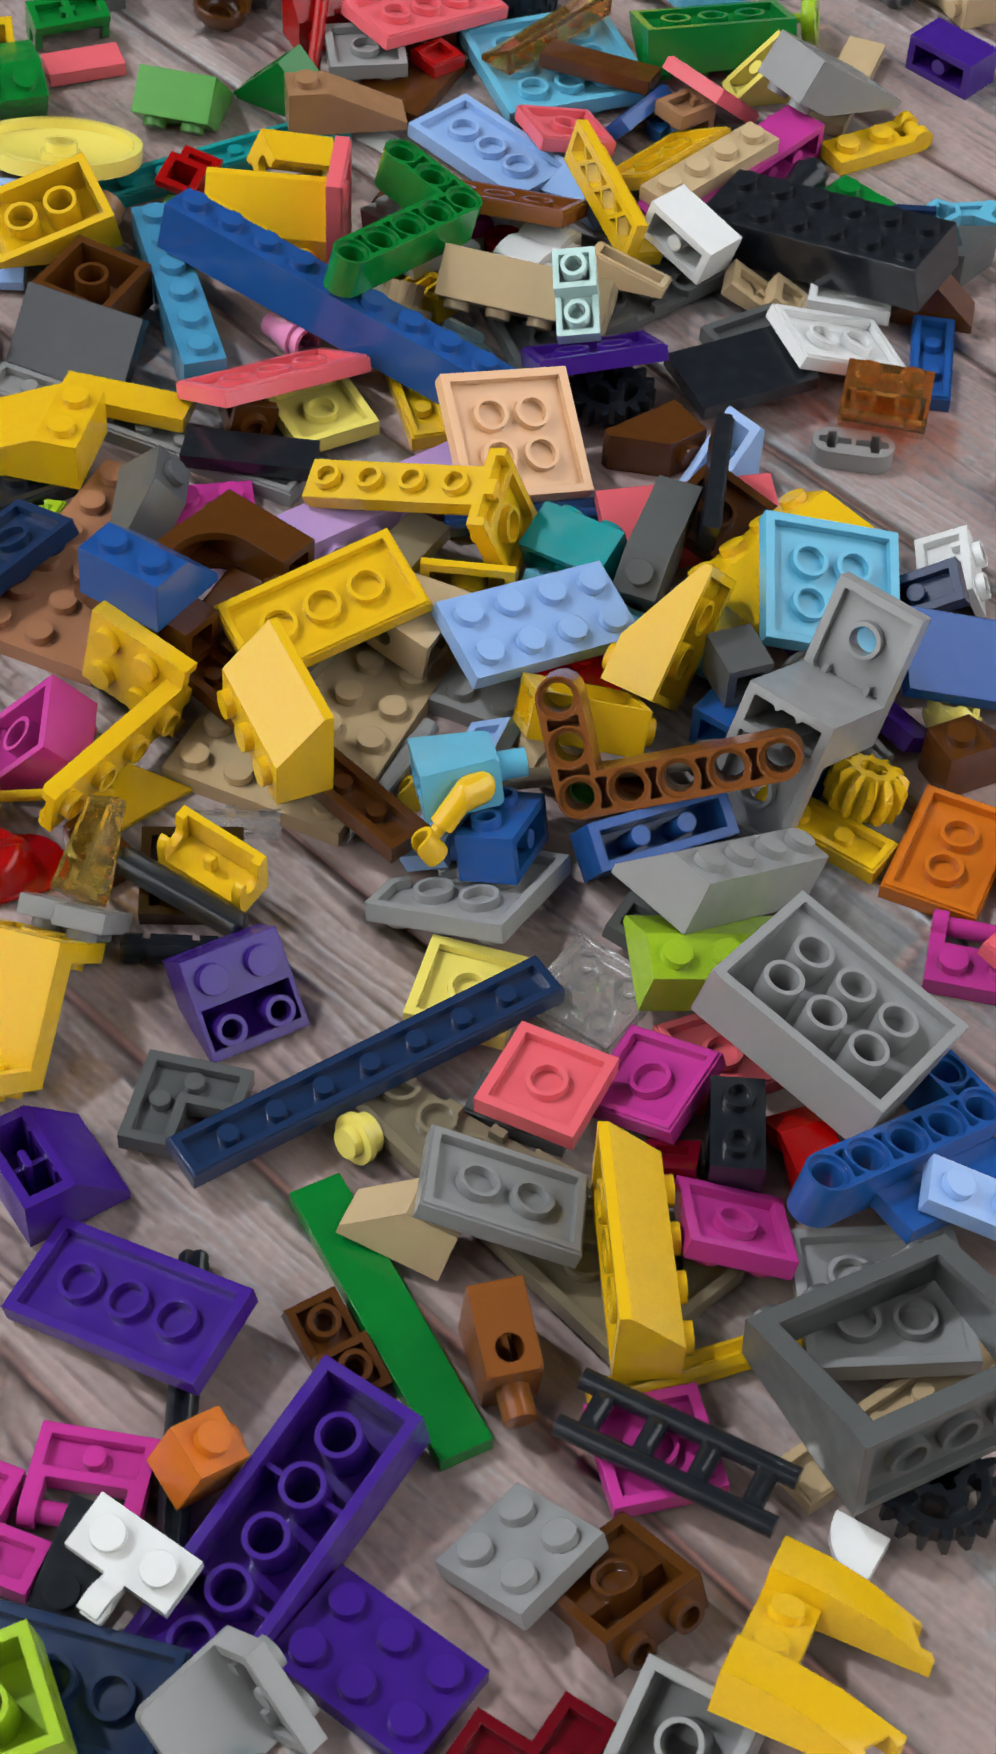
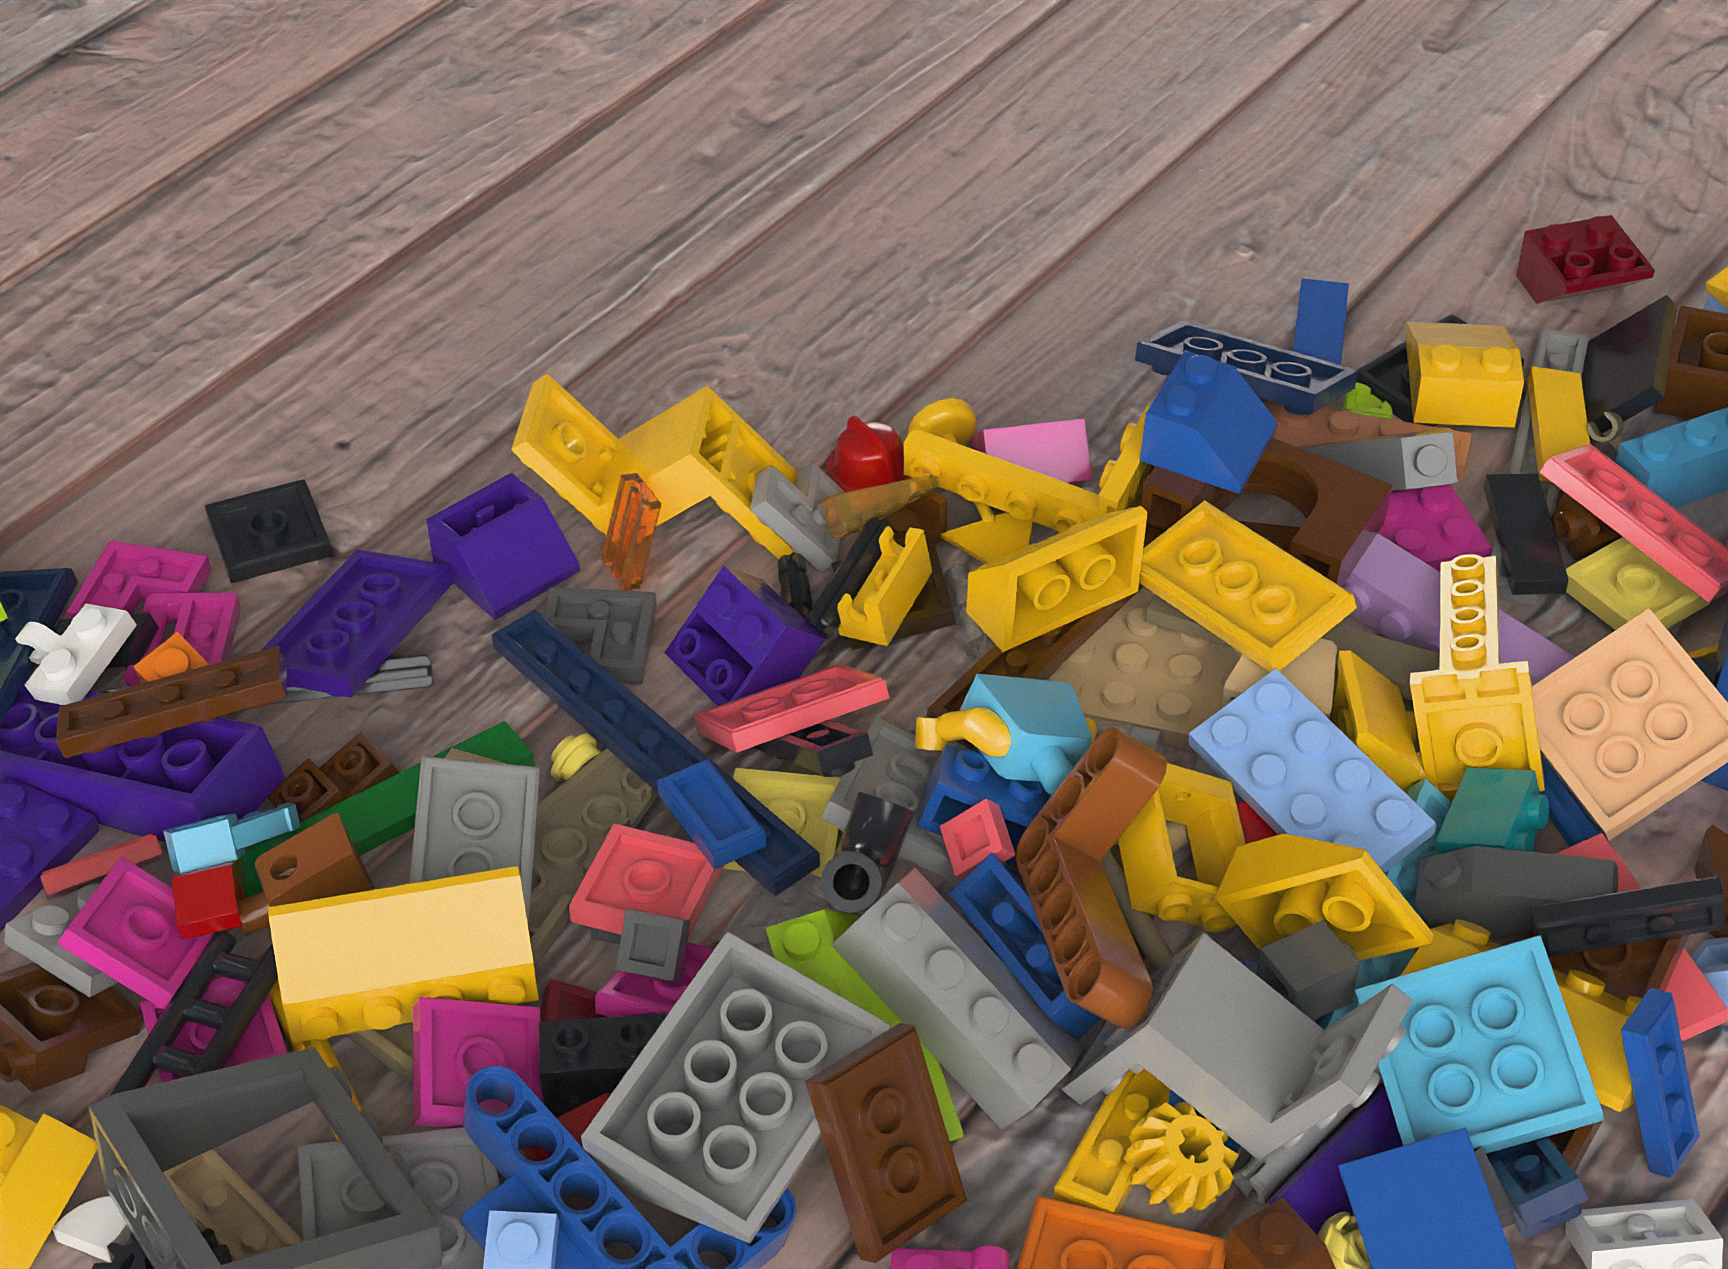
camera: 85 degrees right, 5 degrees down
(84, 1081) = (631, 531): none -> clear orange tile
(153, 375) = (1614, 437): none -> dark tan hand
(272, 1439) = (172, 702): none -> reddish brown plate
(343, 960) = (790, 707): none -> coral tile
(402, 942) = (823, 748): none -> black plate
(424, 1552) = (98, 865): none -> red tile
(456, 1435) = (224, 837): none -> medium azure piece
(485, 1018) = (711, 813): none -> blue tile
(501, 1424) = (209, 899): none -> red slope
(556, 839) = (975, 836): none -> coral plate
(558, 1484) = (134, 935): none -> dark pink plate
(576, 911) = (865, 853): none -> black cylinder
(635, 1075) = (653, 944): none -> dark grey plate
(853, 489) = (1660, 1082): none -> blue tile
(870, 931) = (886, 1142): none -> reddish brown tile

